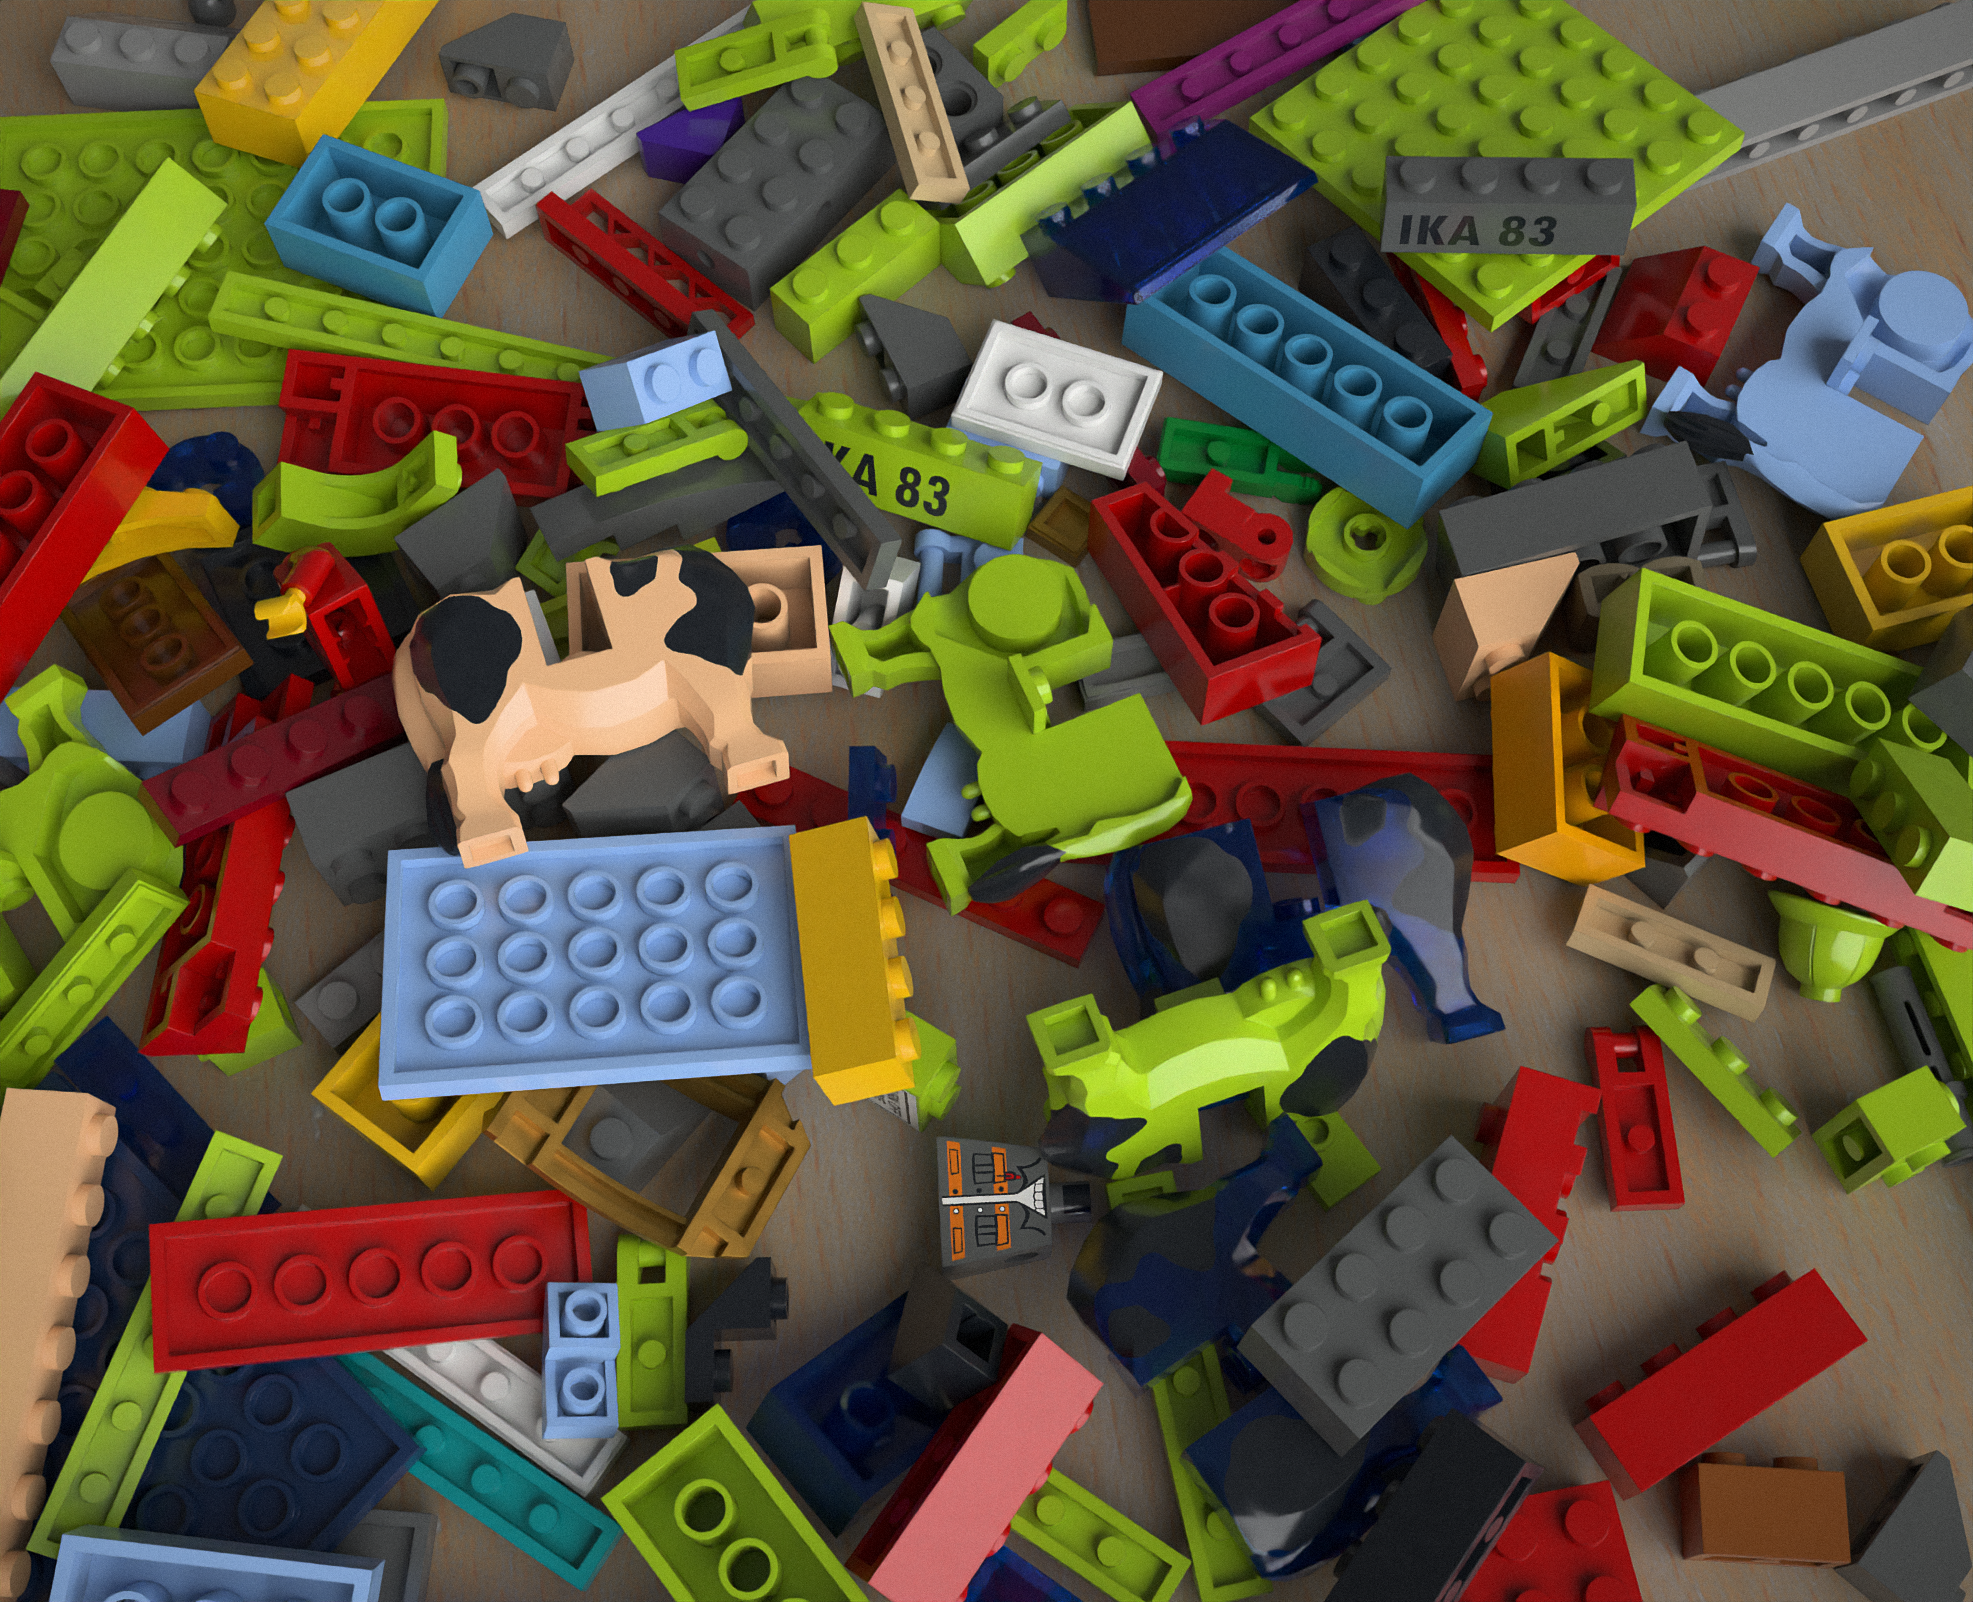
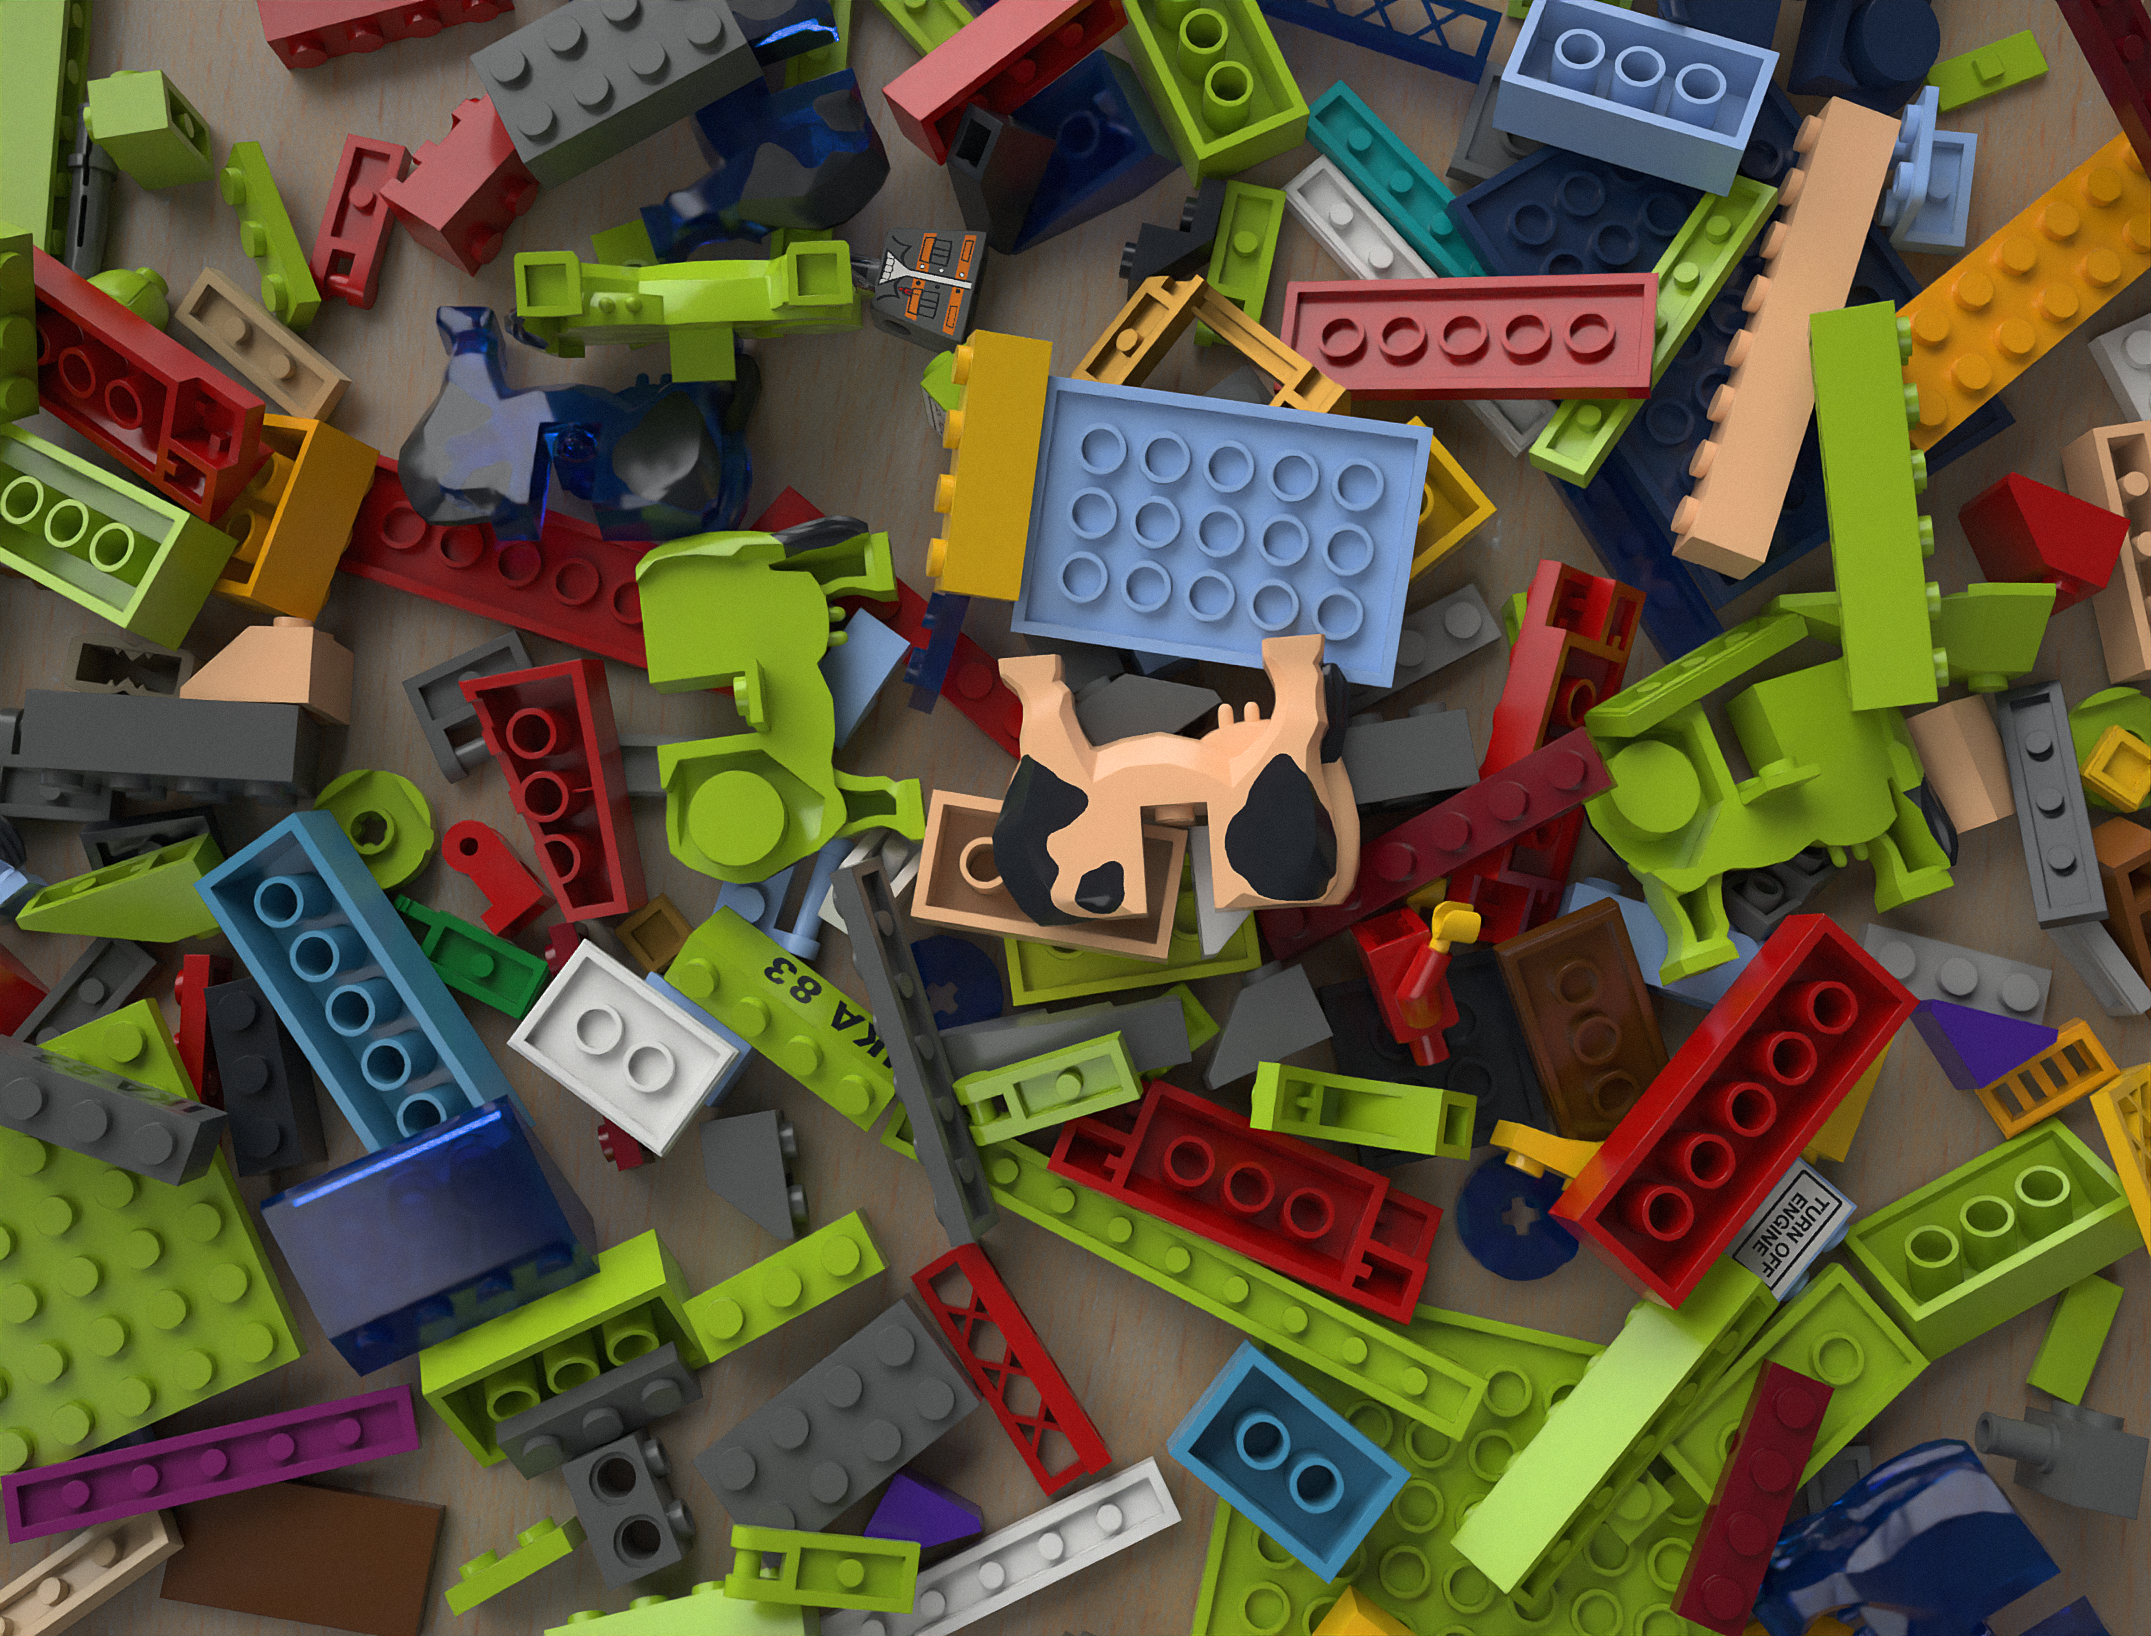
camera: 165 degrees left, 15 degrees up
(579, 1360) = (1307, 247): light blue slope -> none
(655, 381) = (1030, 1151): light blue brick -> none
(911, 103) = (665, 1469): tan plate -> none

